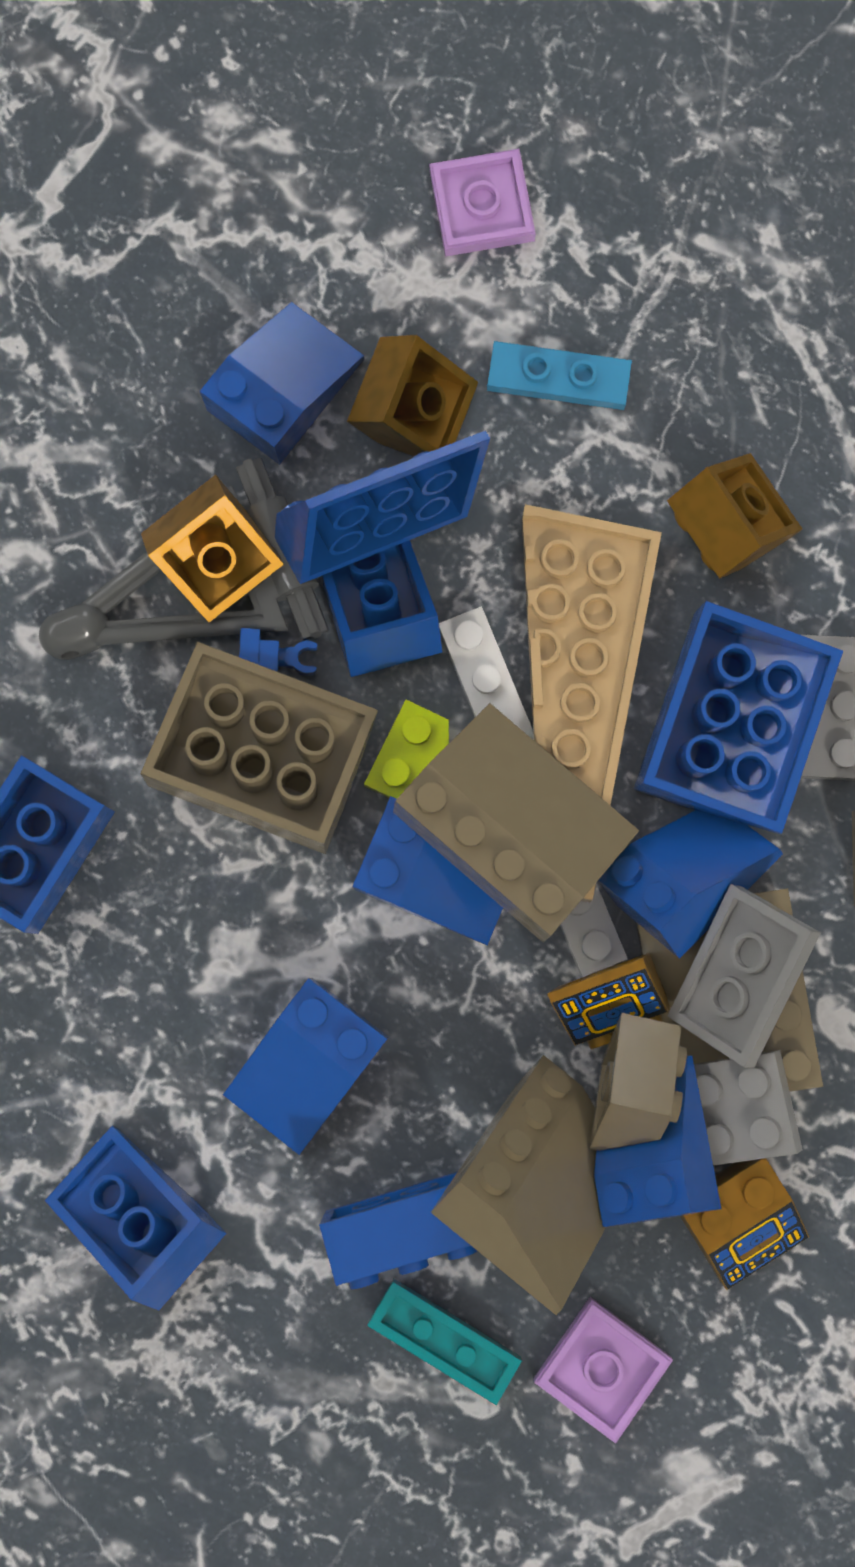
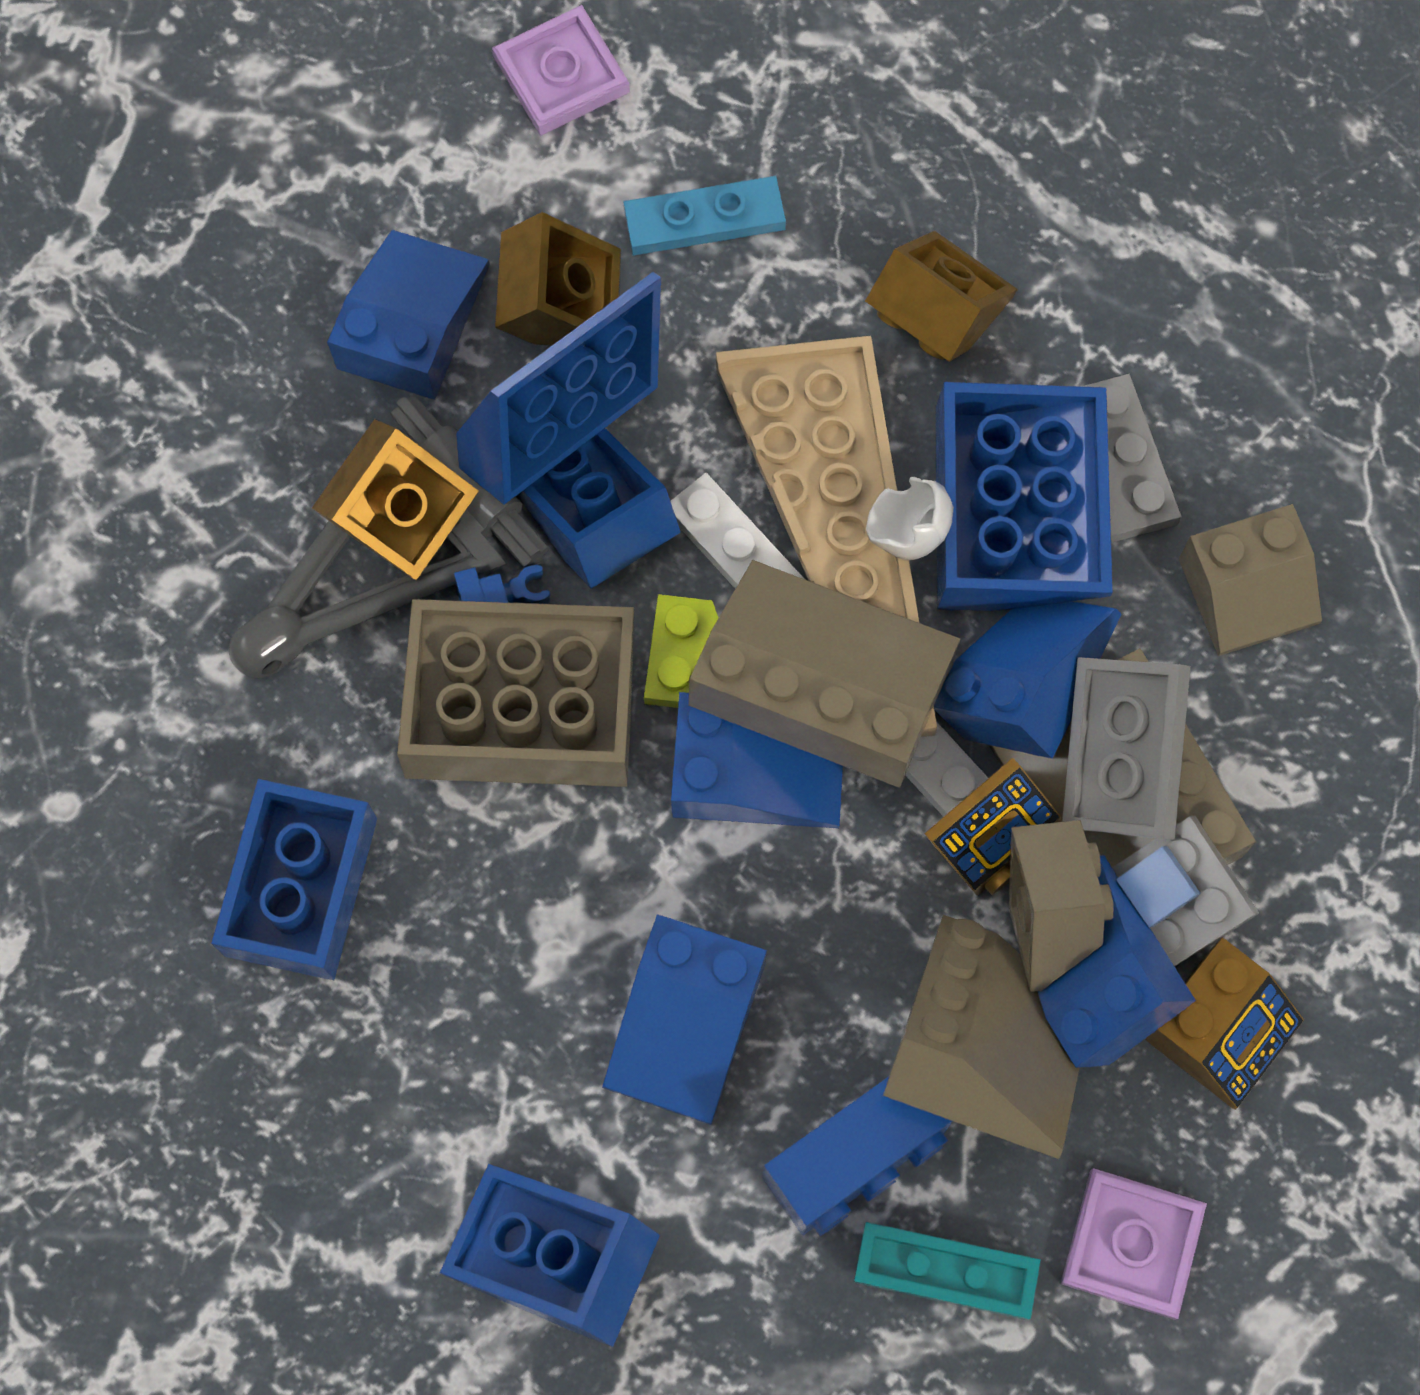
camera: 20 degrees left, 10 degrees down
(633, 714) = (911, 520): none -> white hair
(726, 1101) = (1158, 886): none -> medium blue tile

